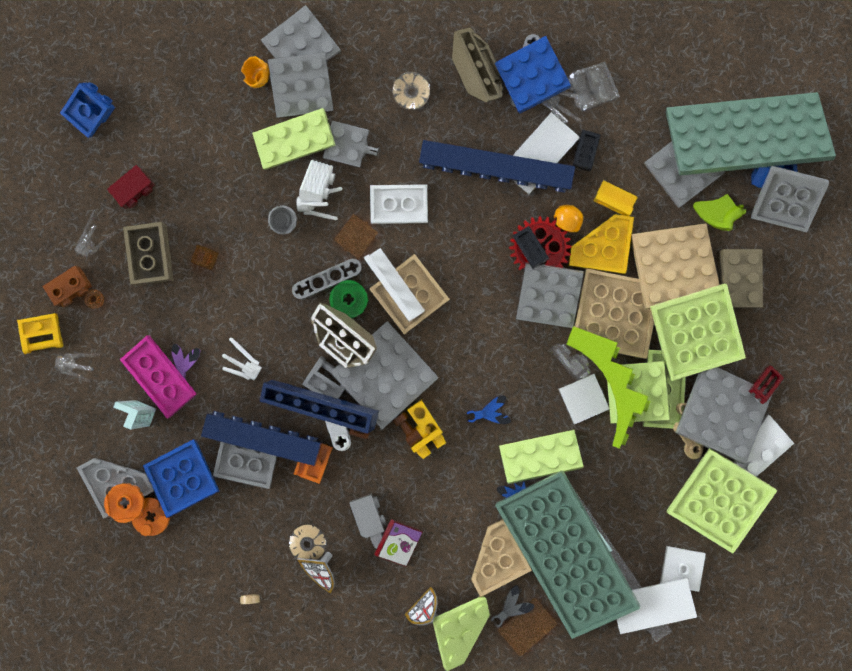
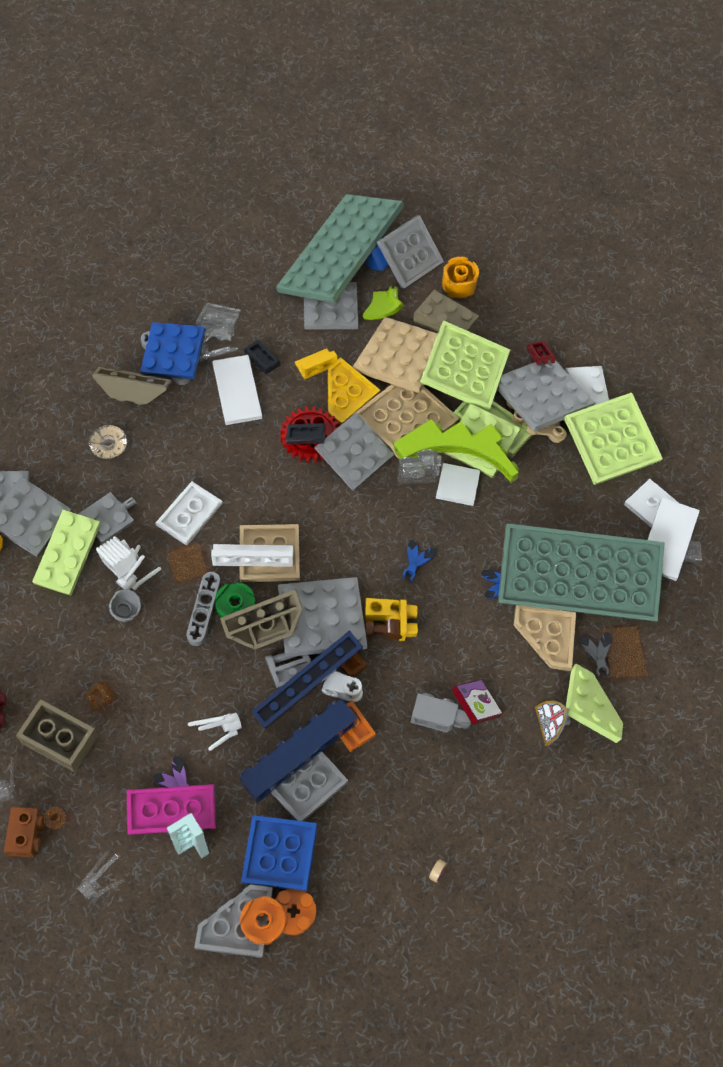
camera: 65 degrees left, 25 degrees down
(37, 327) = (36, 888): yellow plate -> none
(314, 536) = (422, 795): tan dish -> none
(319, 571) = (456, 788): shield -> none
(497, 165) = (219, 420): dark blue brick -> none
(541, 456) = (482, 544): yellowish green plate -> none
(569, 218) = (304, 397): light orange hair -> none
(806, 263) = (460, 277): none -> light orange brick

